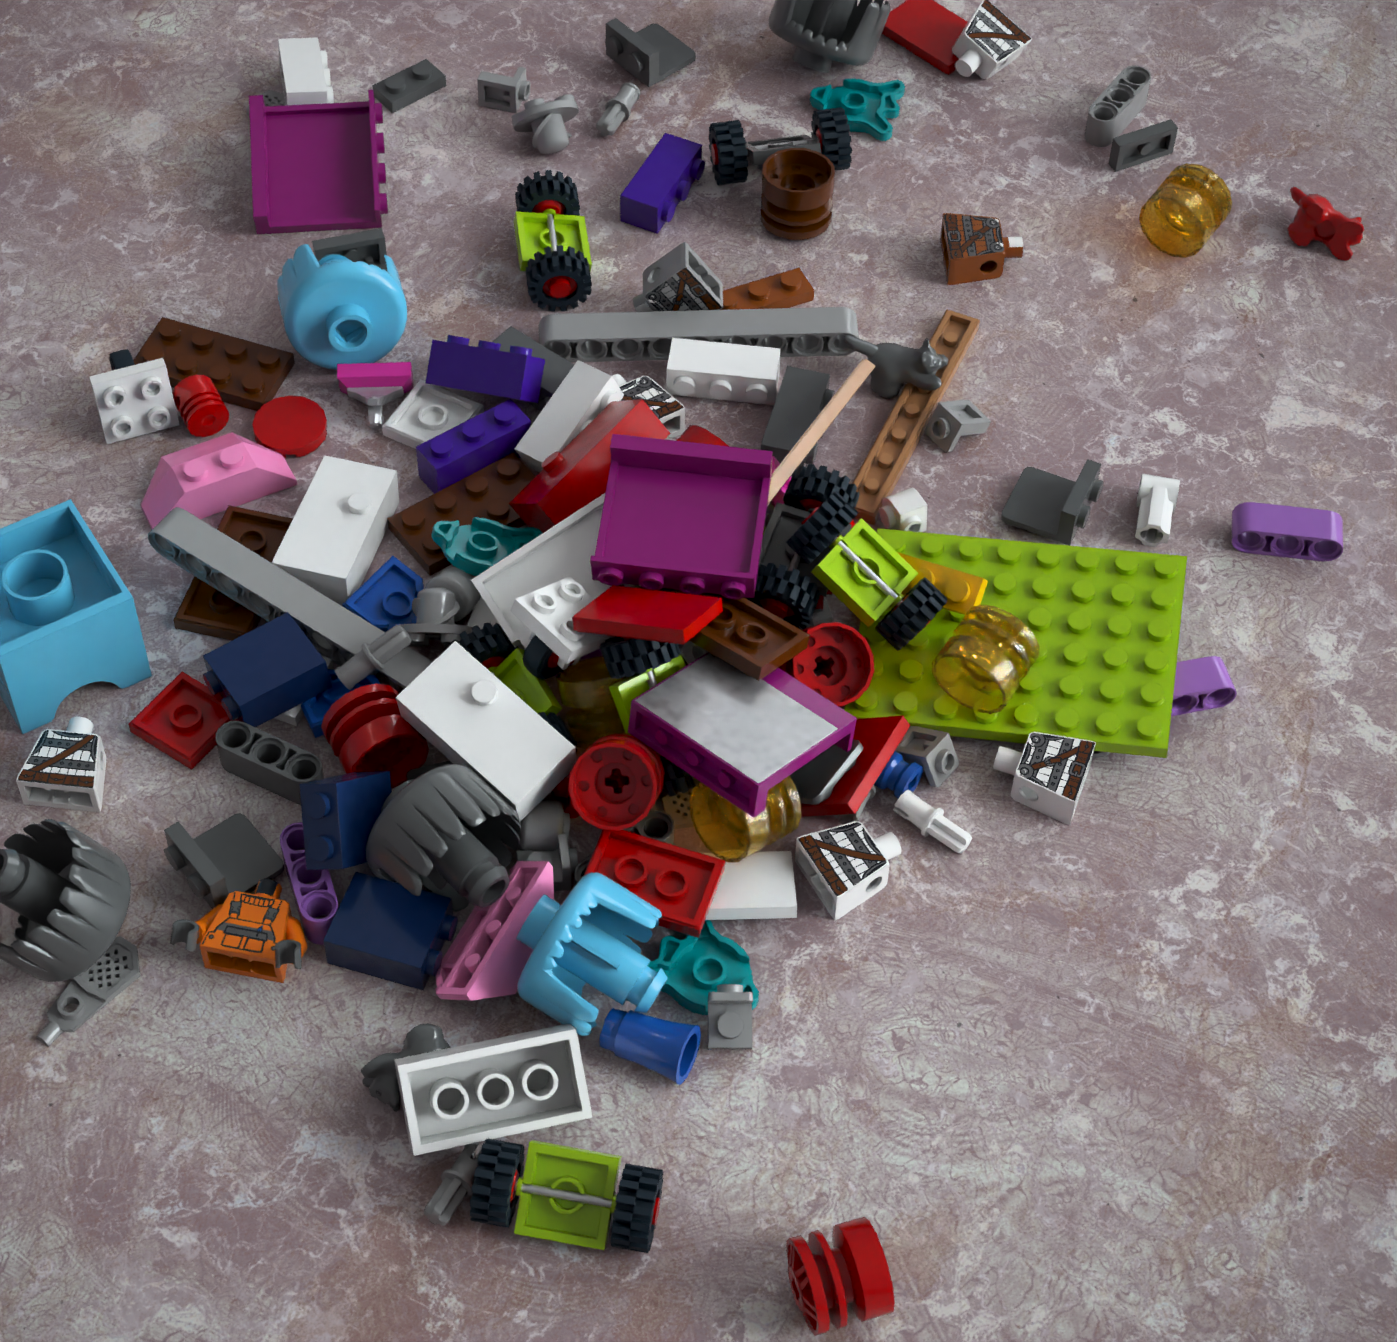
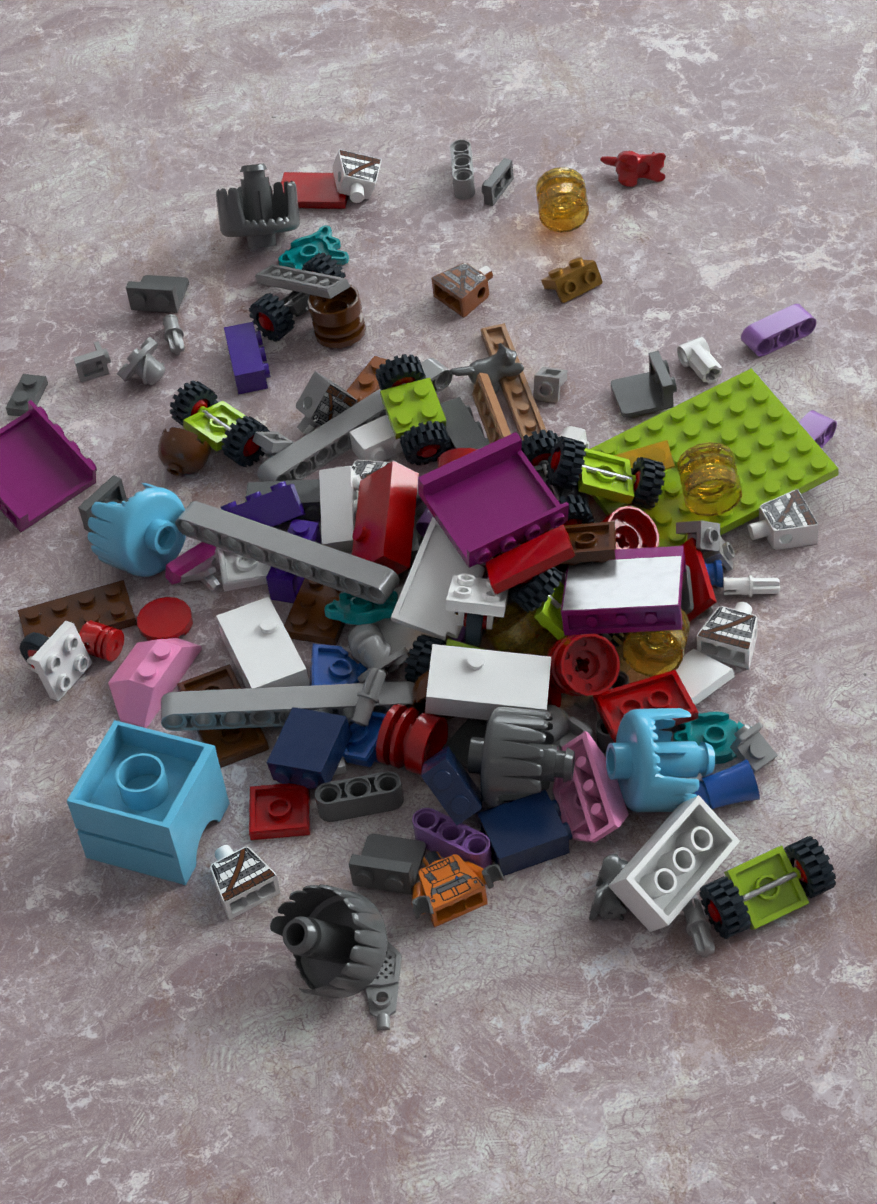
camera: 30 degrees left, 5 degrees down
(453, 434) = (288, 552): none -> light grey beam
(483, 249) = (182, 451): none -> reddish brown cylinder
(581, 295) = (271, 442): none -> light grey bracket
(756, 355) = (413, 409): none -> plate
(793, 130) = (302, 281): none -> light grey tile
(922, 721) = (706, 533): none -> light grey bracket
(1110, 317) = (574, 279): none -> pearl gold bracket

